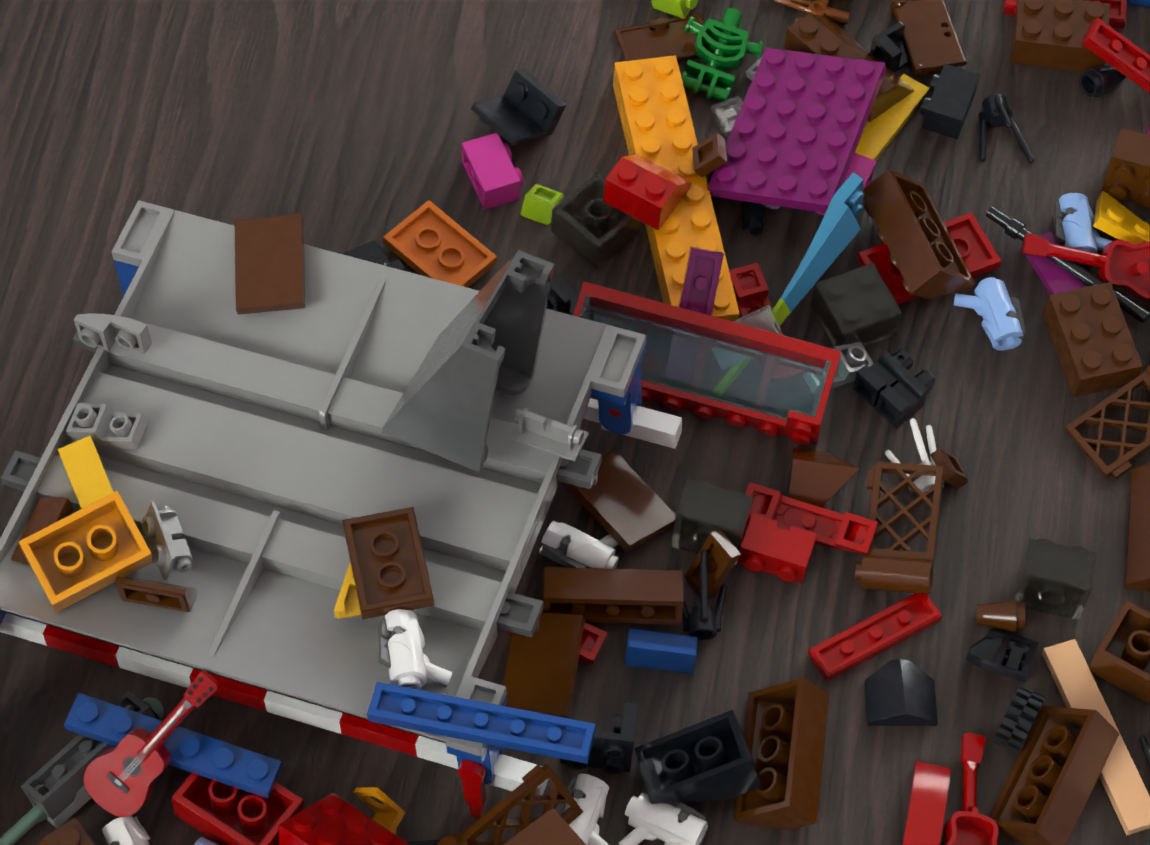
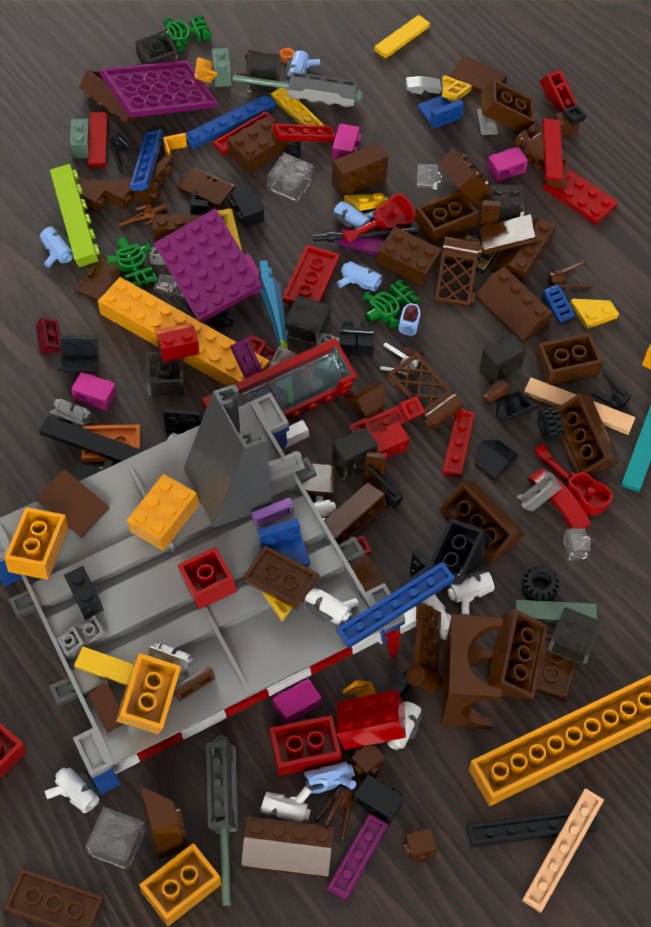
camera: 45 degrees left, 0 degrees up
(106, 329) = (33, 596): light grey slope -> none
(126, 774) = (250, 776): red piece -> none
(157, 374) = (84, 592): none -> black brick
(173, 271) = (36, 543): none -> light orange brick
(187, 748) = (255, 745): blue plate -> none
(300, 748) = (296, 701): none -> dark pink brick
(305, 484) = (207, 578): none -> red brick
(348, 363) = (163, 512): none -> light orange brick
(410, 218) = (87, 440): none -> black tile
(436, 184) = (77, 416): none -> light grey hinge
(446, 528) = (286, 540): none -> blue bracket
(469, 478) = (272, 512): none -> medium lavender tile
(524, 53) = (48, 335): none -> dark red slope
(539, 204) = (129, 387): lime slope -> none
(661, 651) = (389, 523): blue panel -> none
(709, 155) = (186, 305): reddish brown plate -> none
(897, 791) = (540, 492): none -> light grey hinge
(916, 236) = (302, 271): reddish brown slope -> none
(995, 421) = (409, 320): none -> light blue rock
(998, 114) = (270, 196): black plant -> none
(1027, 384) = (382, 303): none -> green piece
(1054, 108) = (290, 176): none -> clear brick

